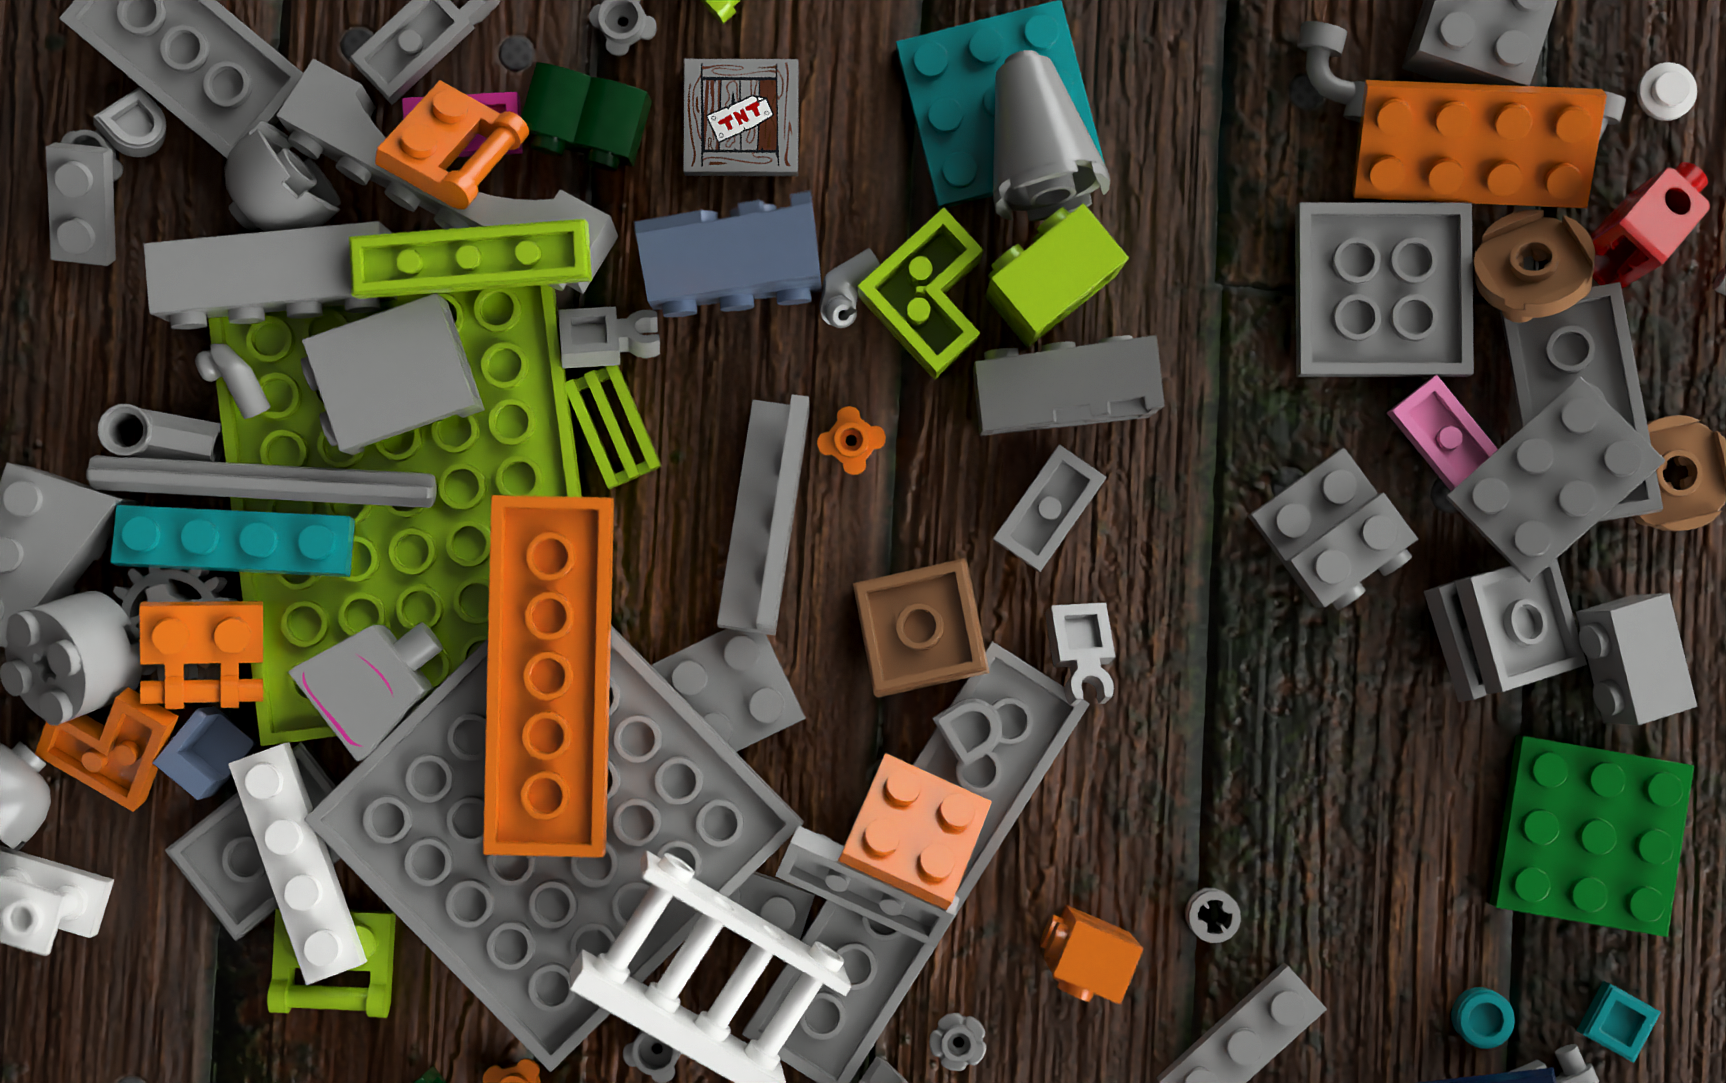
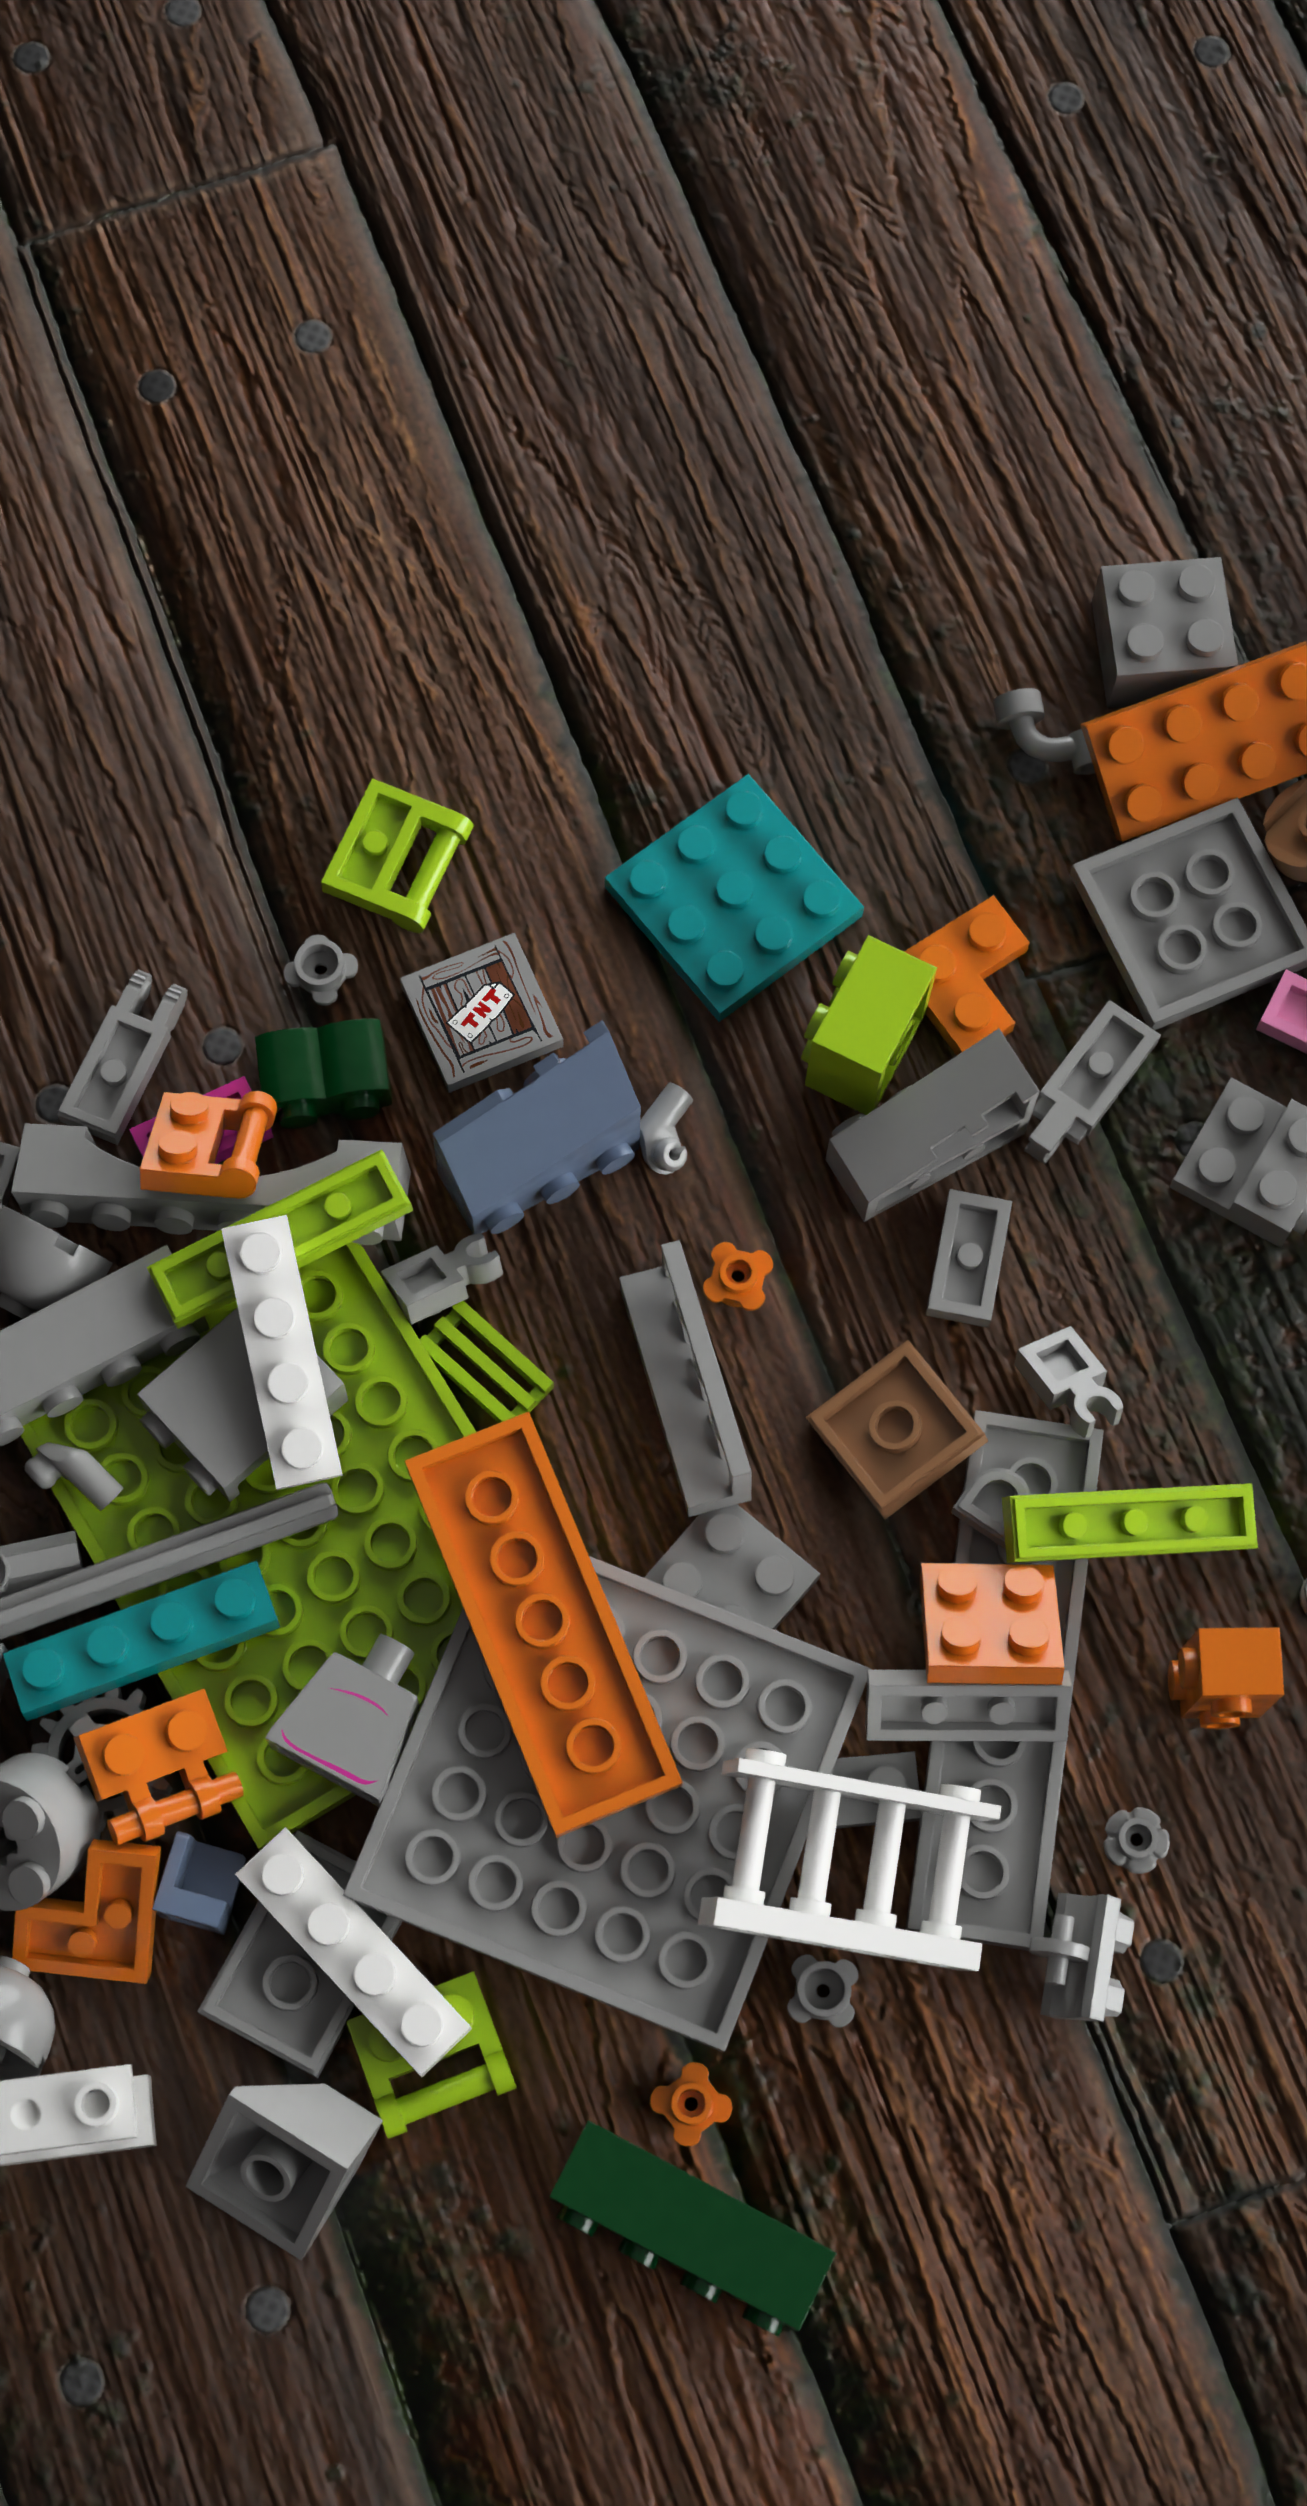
camera: 30 degrees left, 15 degrees down
(184, 995) = (283, 2159): none -> light grey slope
(428, 359) = (281, 1352): none -> white plate
(911, 291) = (738, 1107): lime brick -> none
(1040, 142) = (797, 904): light grey cone -> none
(1072, 791) = (1129, 1523): none -> lime tile
(1155, 247) = (964, 955): none -> orange plate
(1225, 397) = (1090, 1079): none -> light grey hinge

